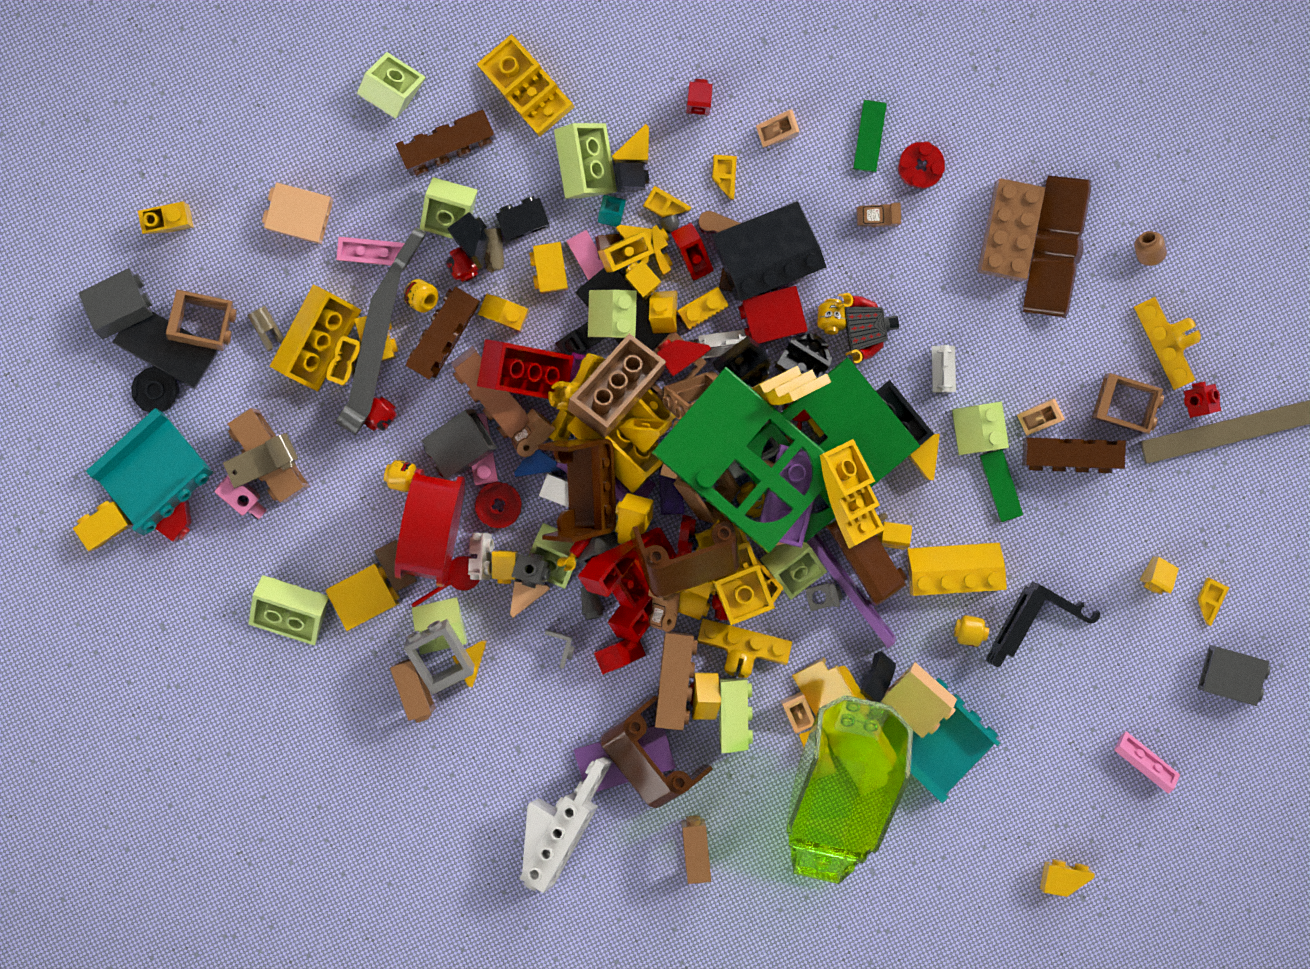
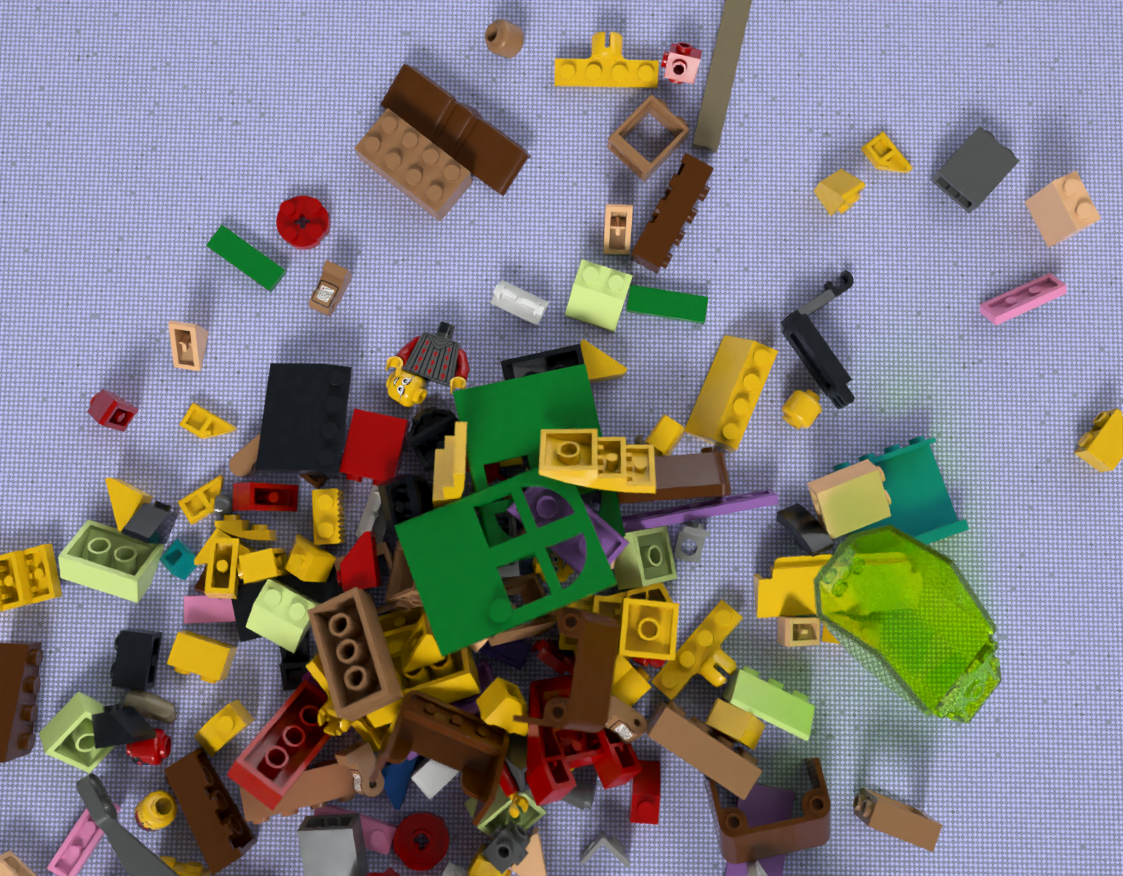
camera: 65 degrees left, 5 degrees down
(1232, 757) = (1062, 209): none -> light nougat brick

